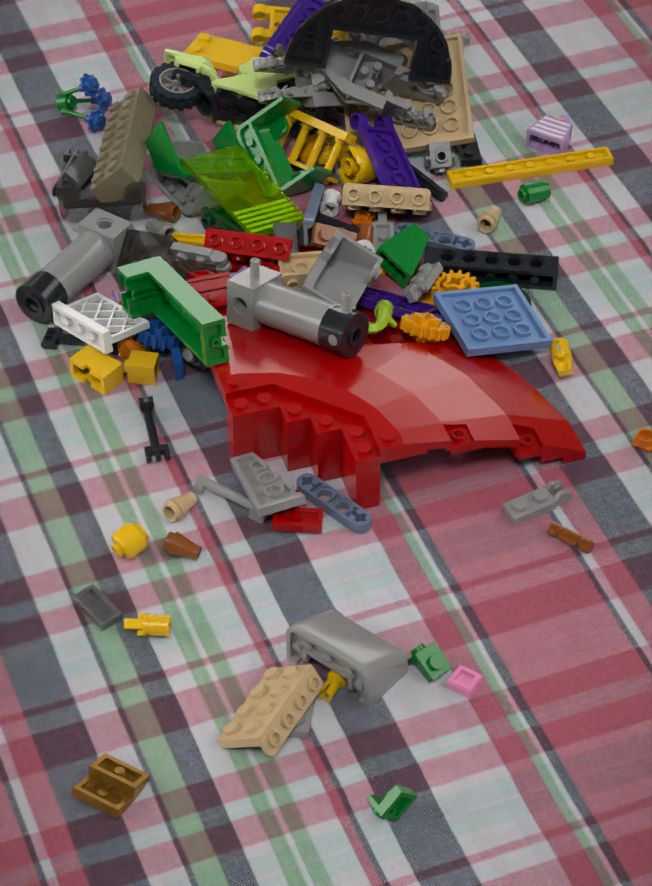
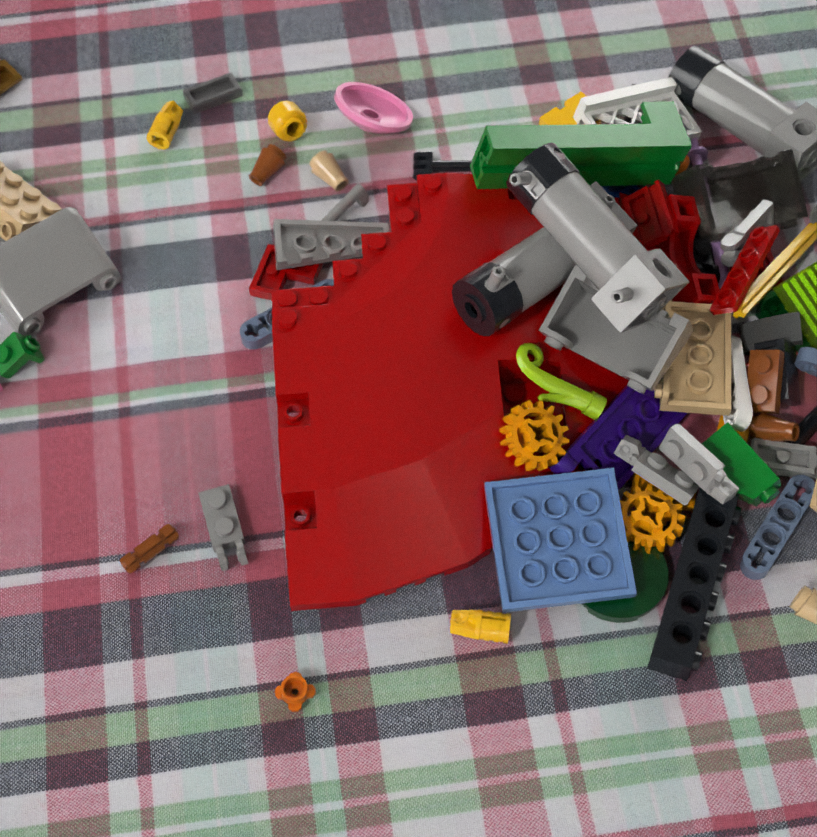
camera: 105 degrees right, 15 degrees up
(110, 481) = (373, 108): none -> bright pink dish
(296, 260) = (629, 278): none -> light grey piece
(415, 257) = (698, 463): none -> light grey hinge

